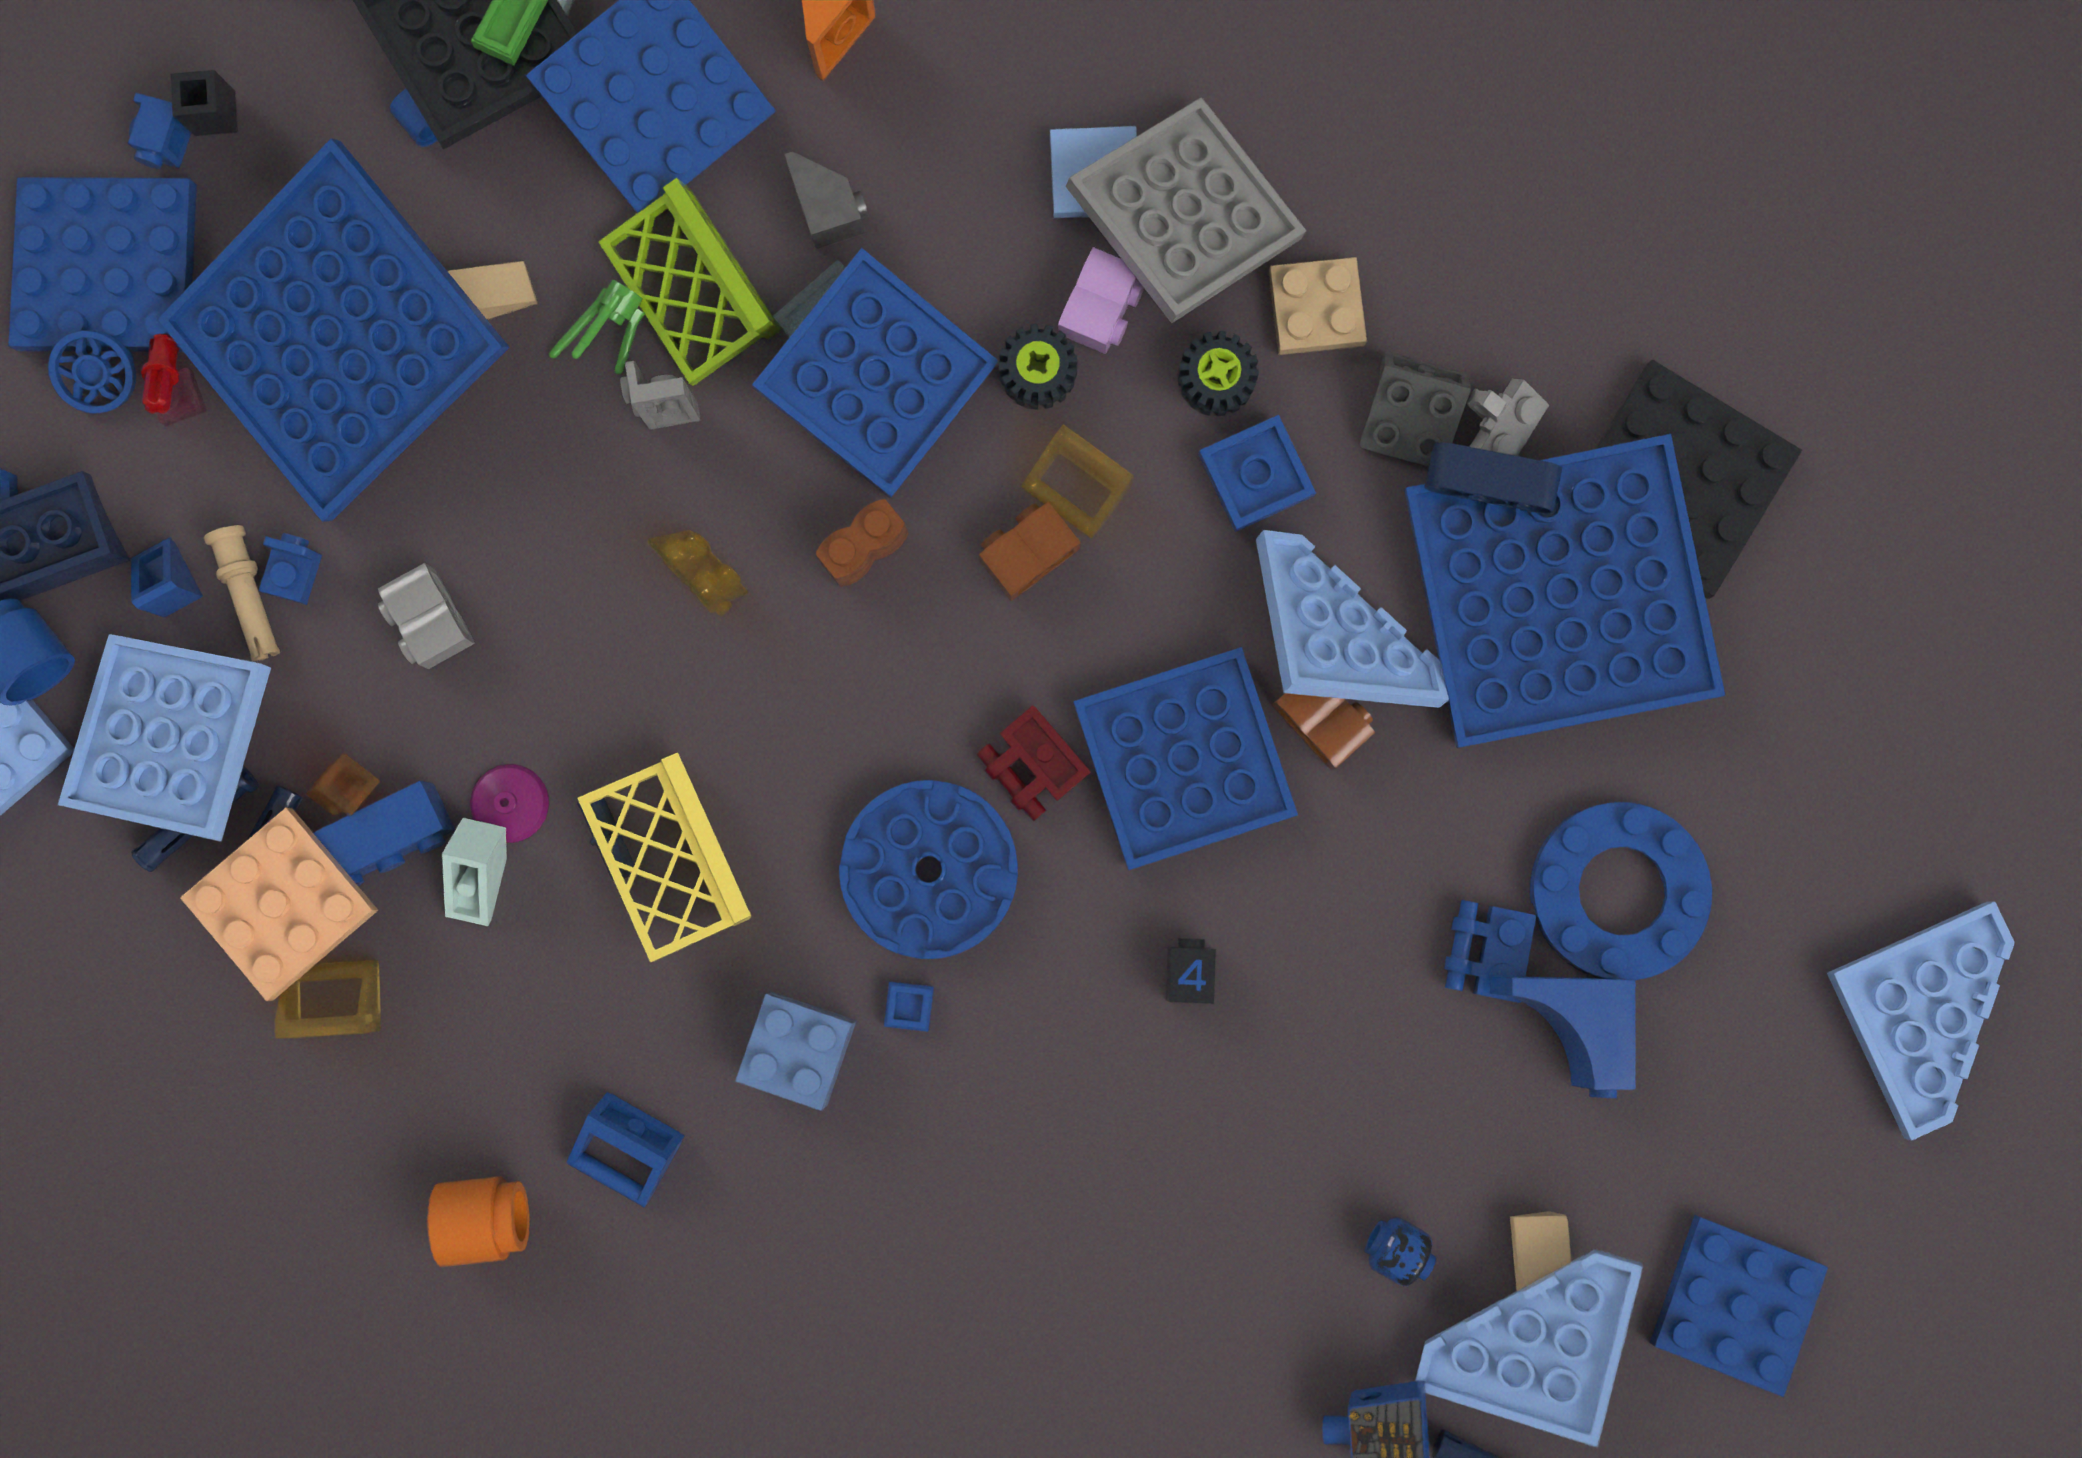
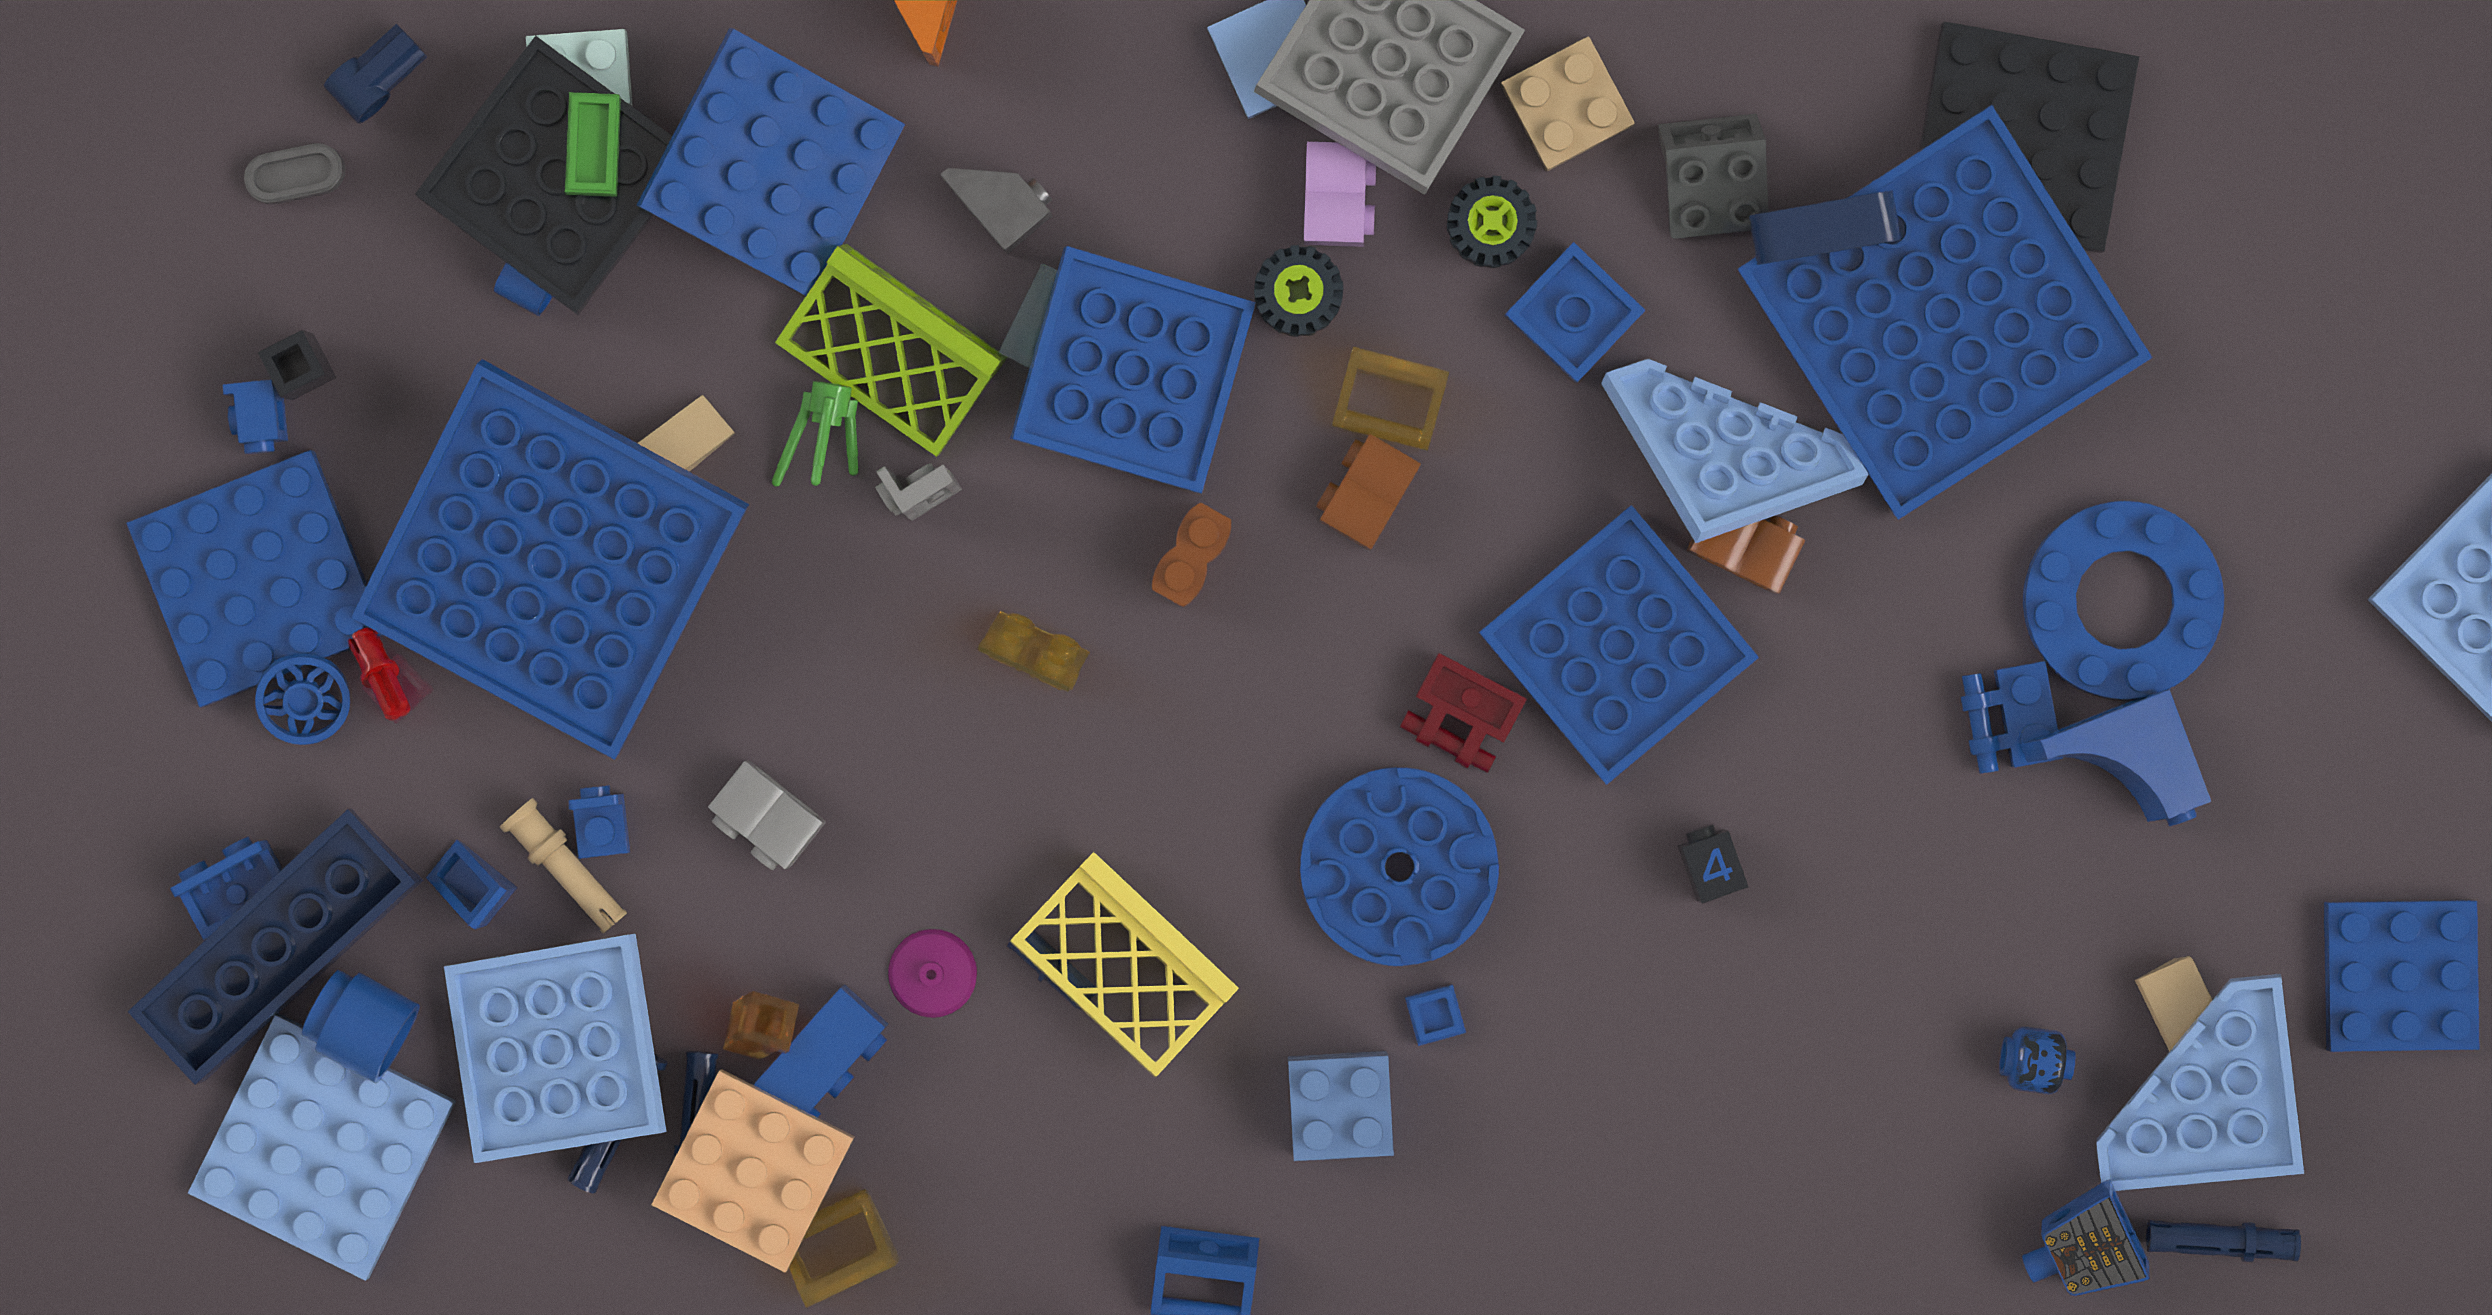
camera: 20 degrees left, 5 degrees up
(473, 871) = (931, 1057): light aqua slope -> none
(1506, 417) = (1815, 153): light grey hinge -> none

